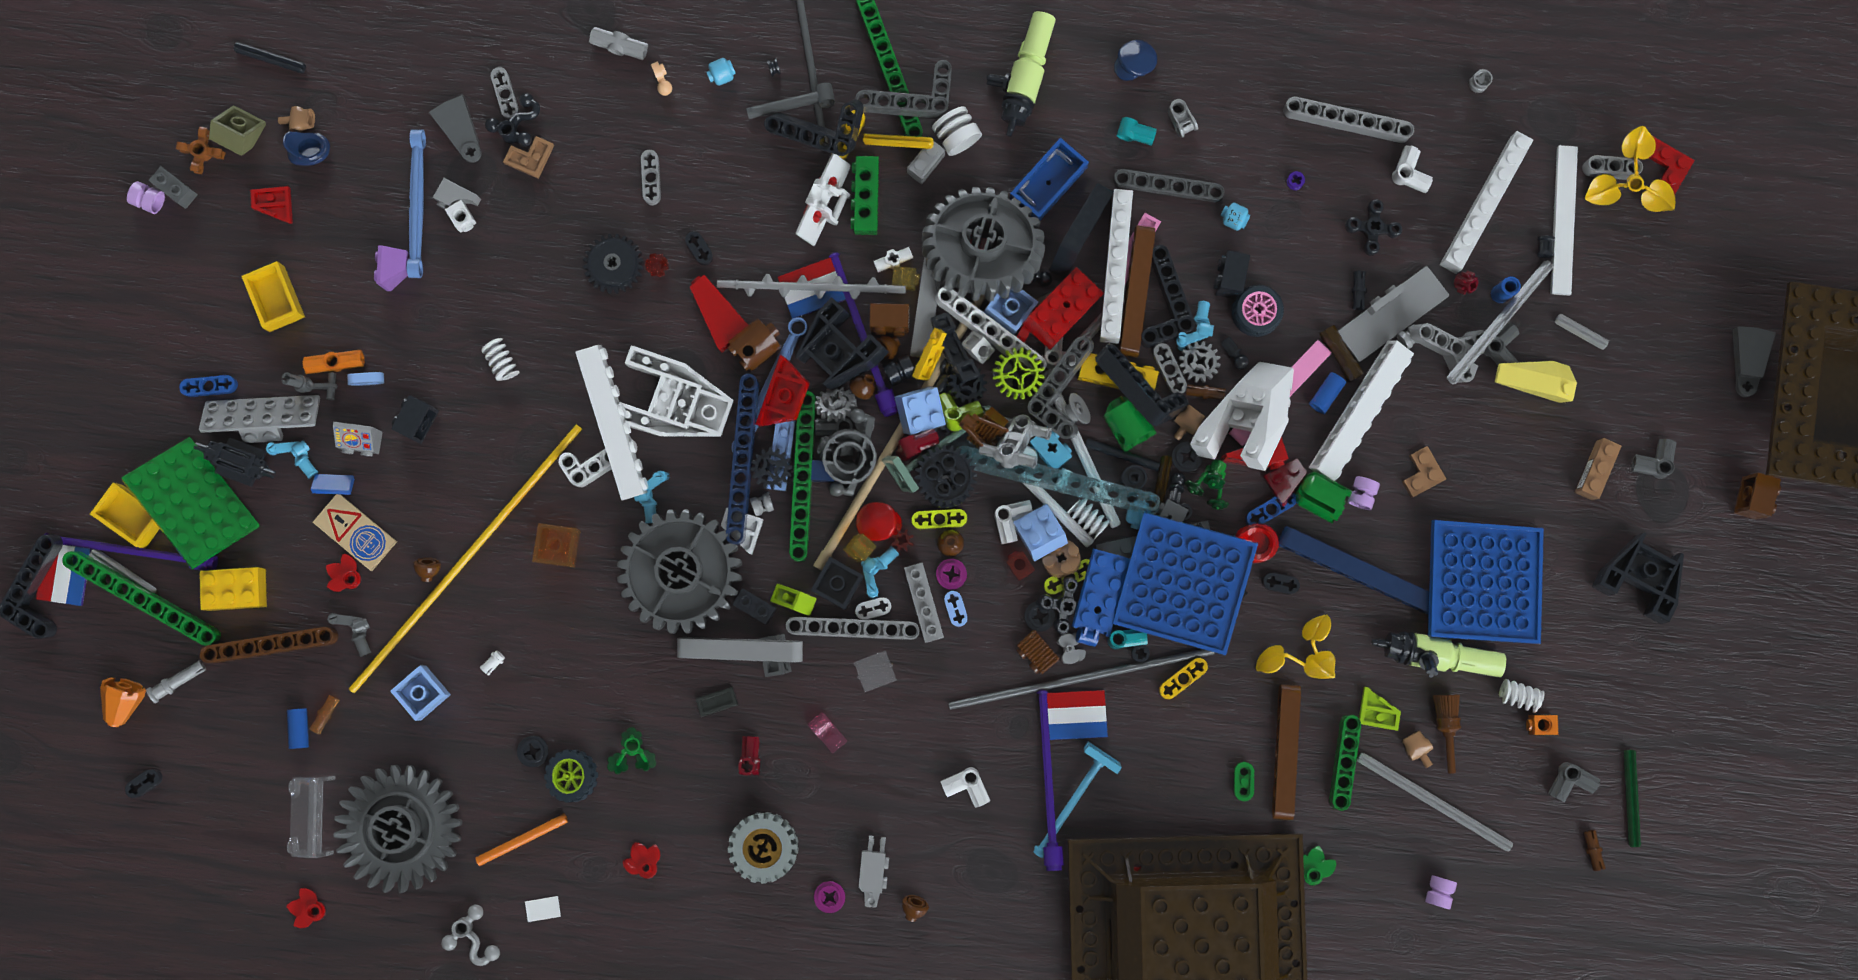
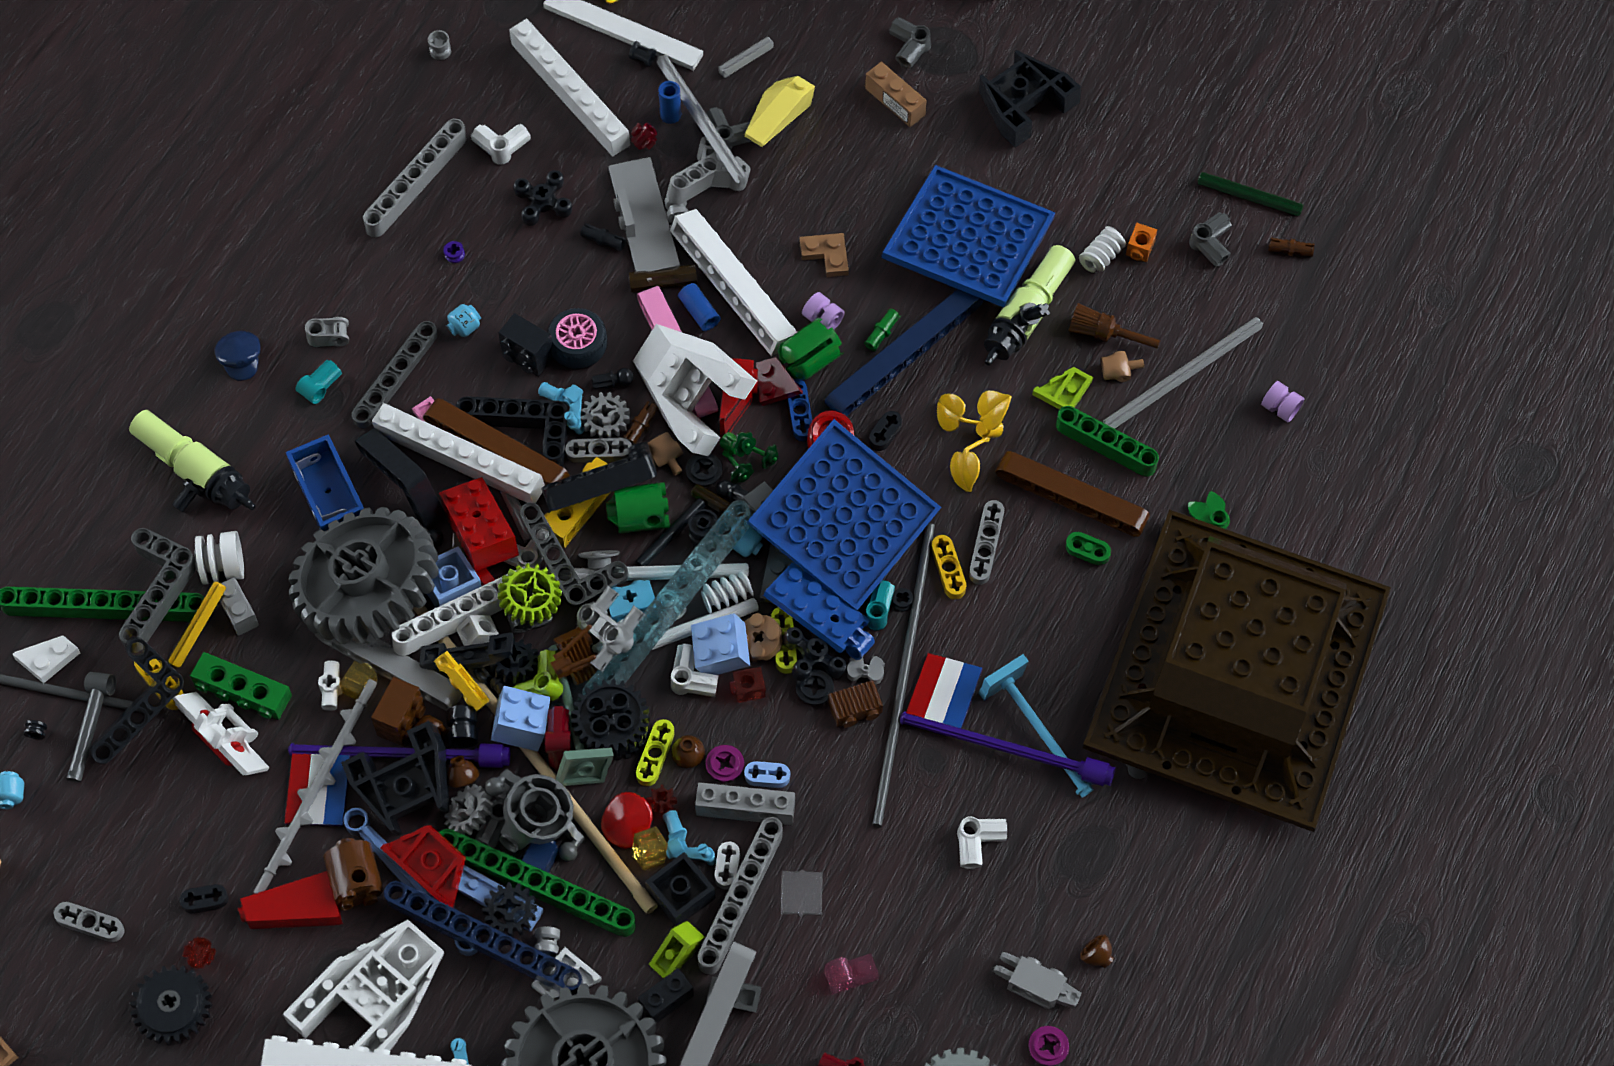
camera: 70 degrees left, 20 degrees down
(832, 46) = (47, 657): none -> white wing
(1217, 702) = (986, 542): none -> light grey beam
(1370, 545) = (882, 329): none -> green pin

